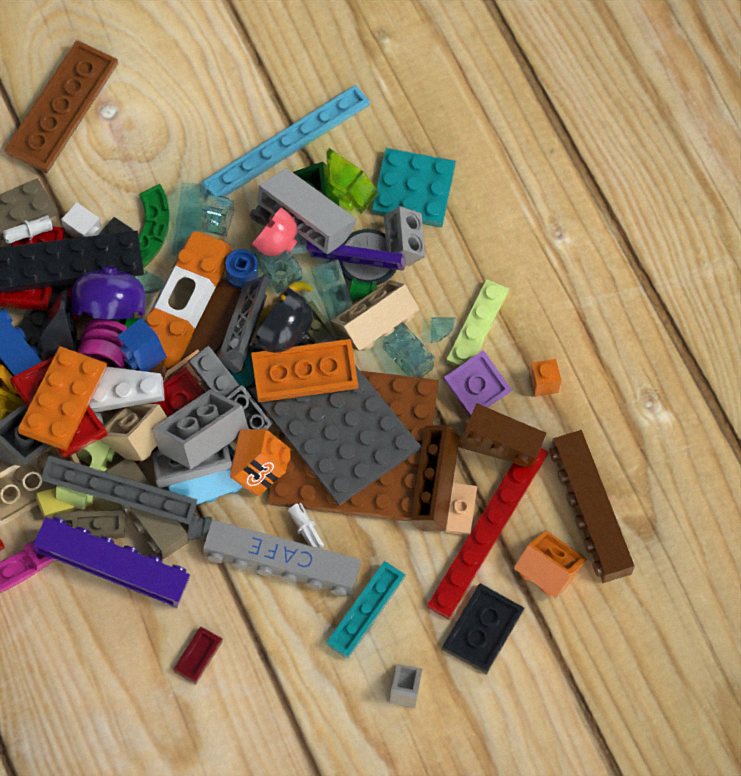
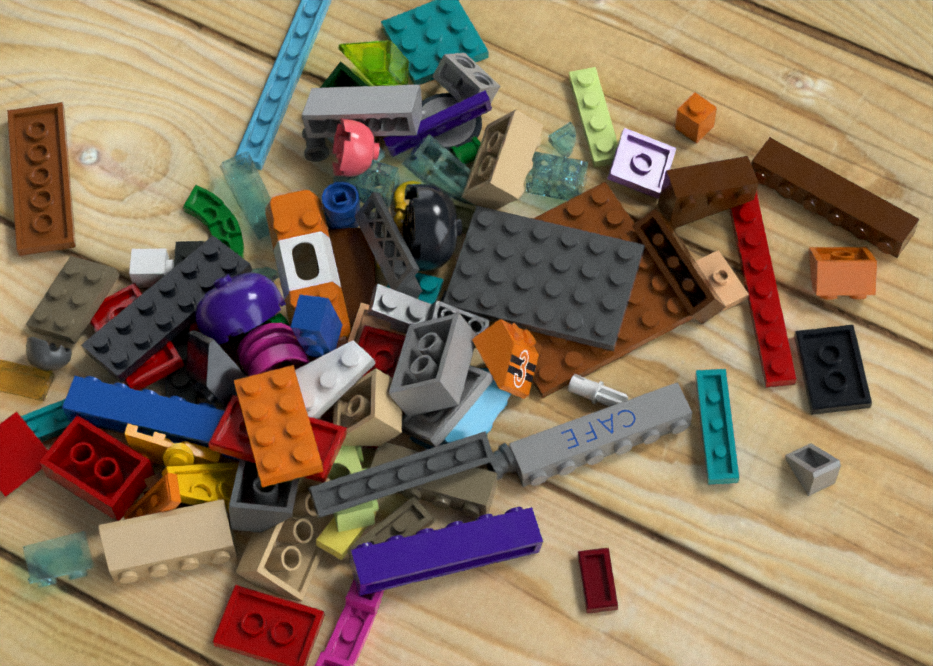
camera: 30 degrees left, 5 degrees down
(28, 229) = (103, 304): white axle -> none
(217, 215) = (277, 174): clear light blue slope -> none
(305, 370) = (484, 249): orange plate -> none

